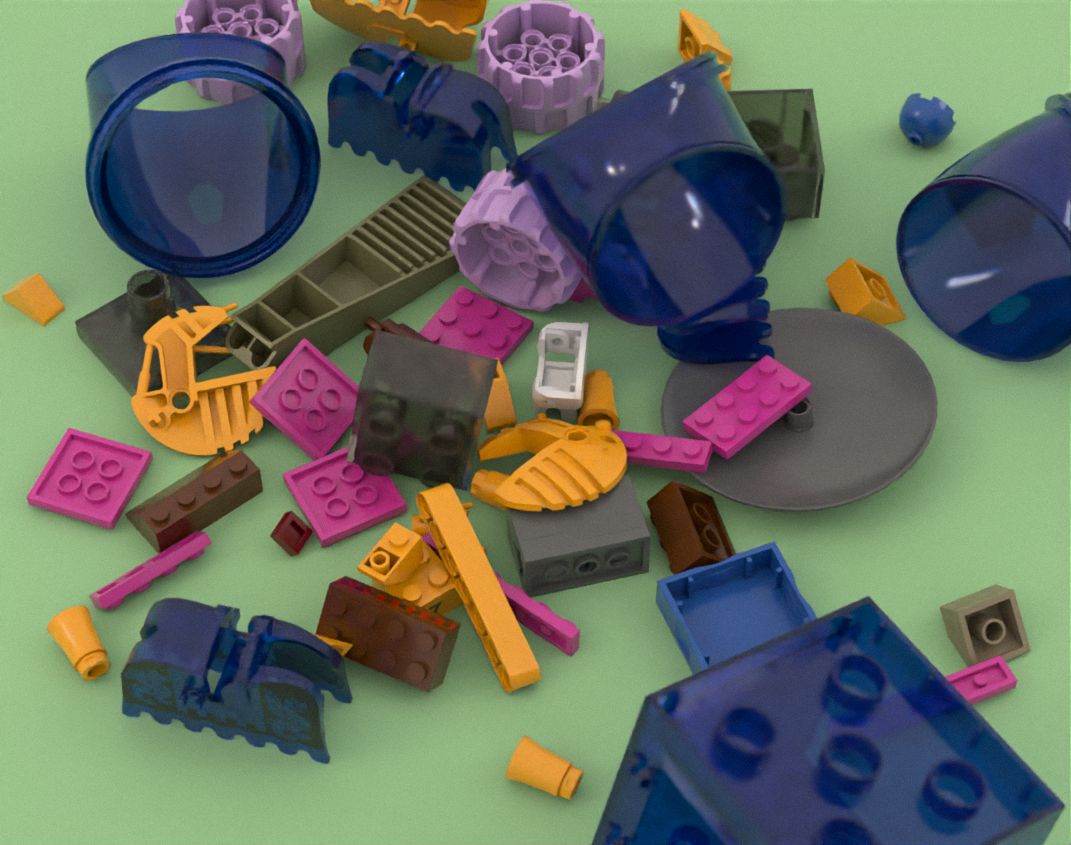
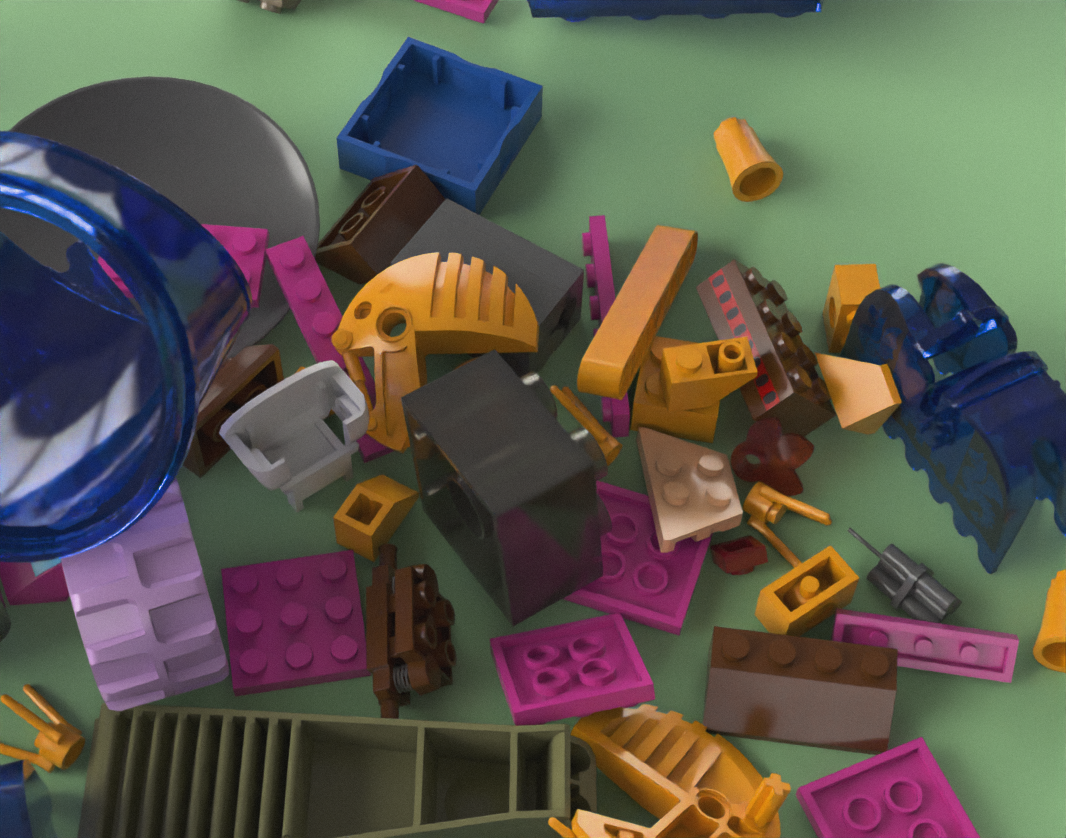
camera: 135 degrees left, 5 degrees up
(196, 591) = (910, 585): none -> dark grey piece
(231, 533) = (807, 594): none -> light orange brick
(302, 572) = (768, 505): none -> light orange plant
(316, 595) = (777, 454): none -> clear red plate
(342, 532) = (687, 488): none -> light nougat wing
(365, 708) = (845, 294): none -> light orange brick
(631, 374) = (236, 384): none -> reddish brown slope

